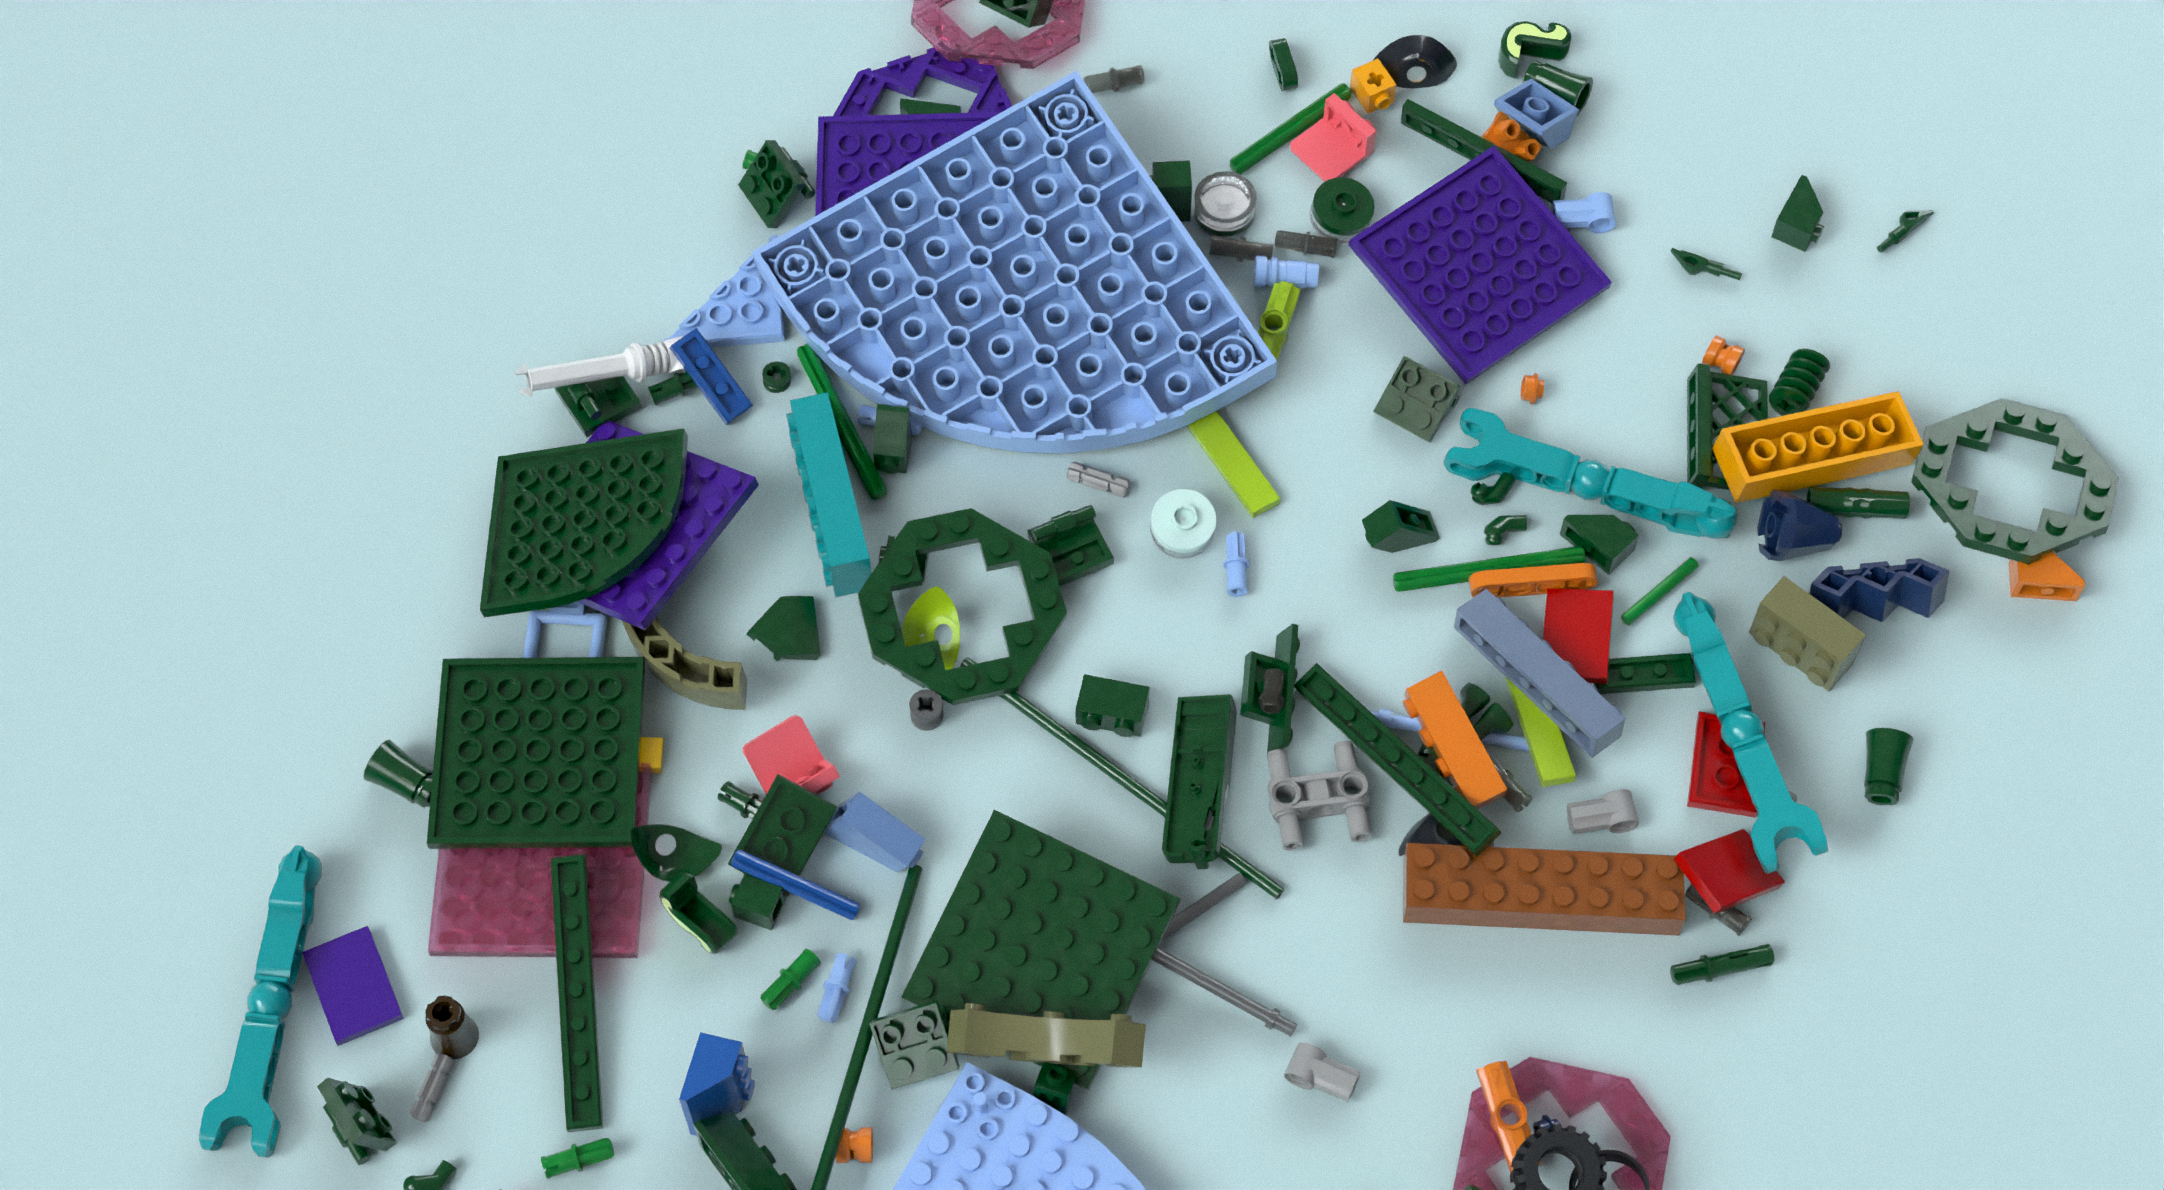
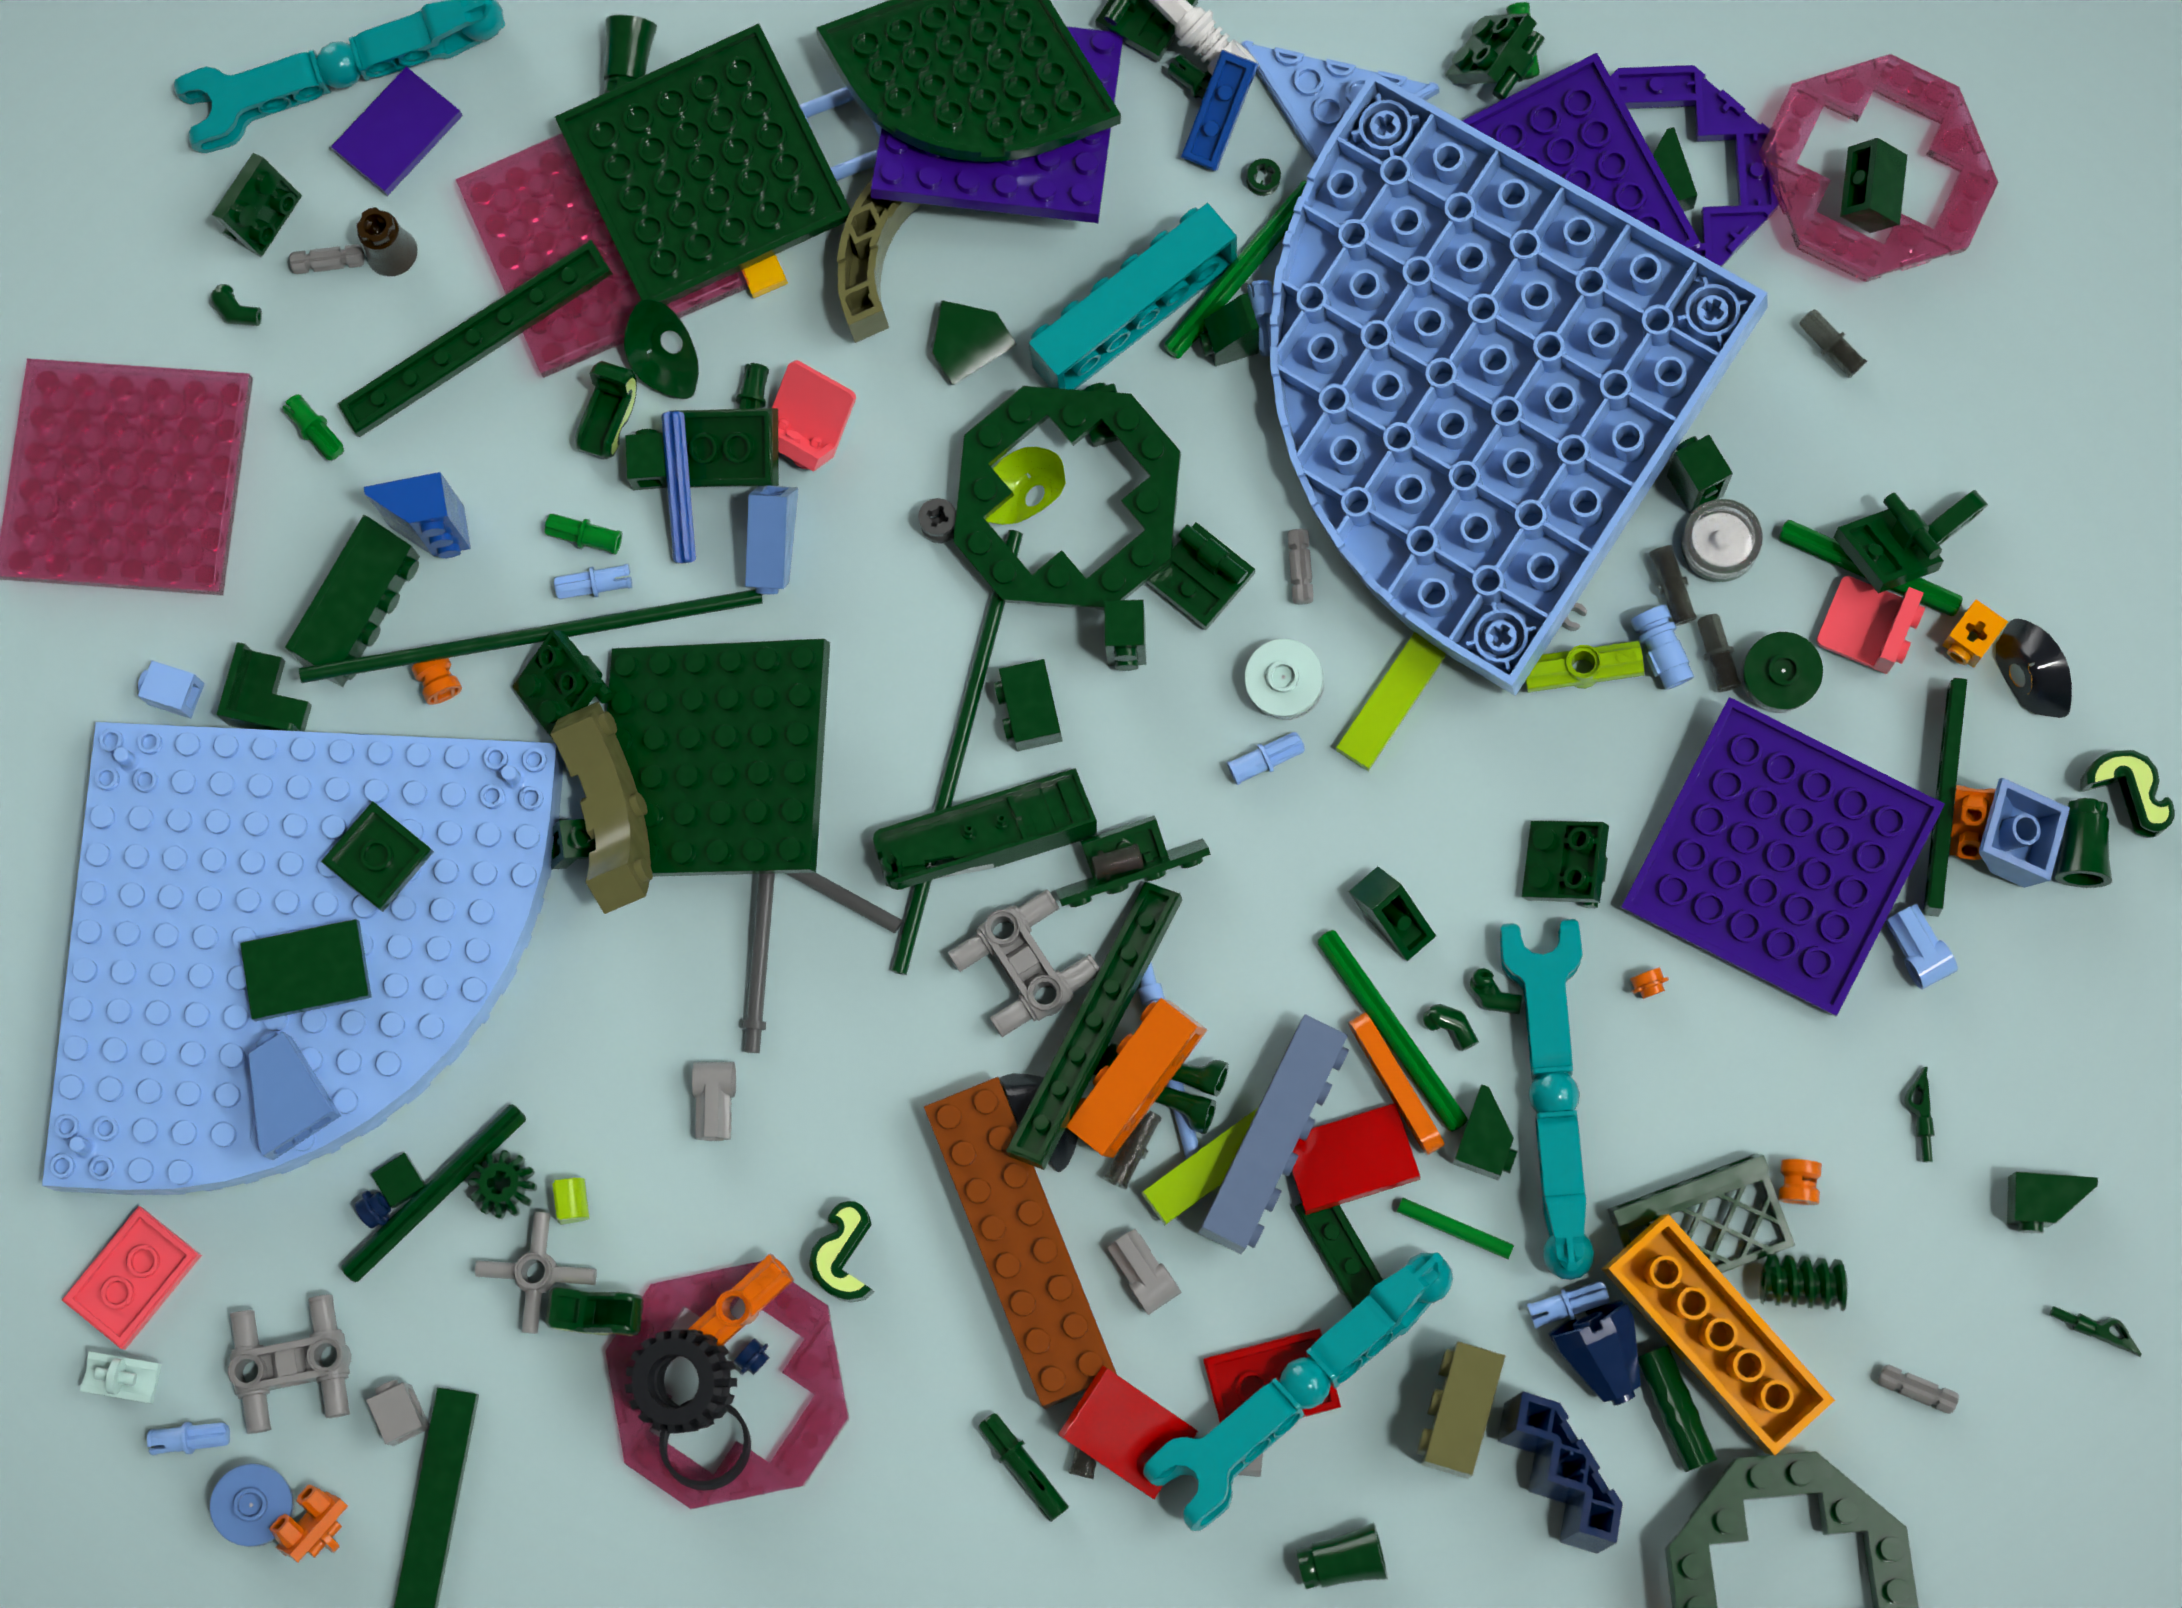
camera: 75 degrees right, 15 degrees up
(1094, 609) = (1125, 634): none -> dark green brick
(1285, 101) = (1891, 545): none -> dark green plate
(1489, 1032) = (835, 1250): none -> dark green animal
(1750, 540) = (1568, 1303): none -> light blue axle
(1903, 351) = (1918, 1389): none -> light grey axle

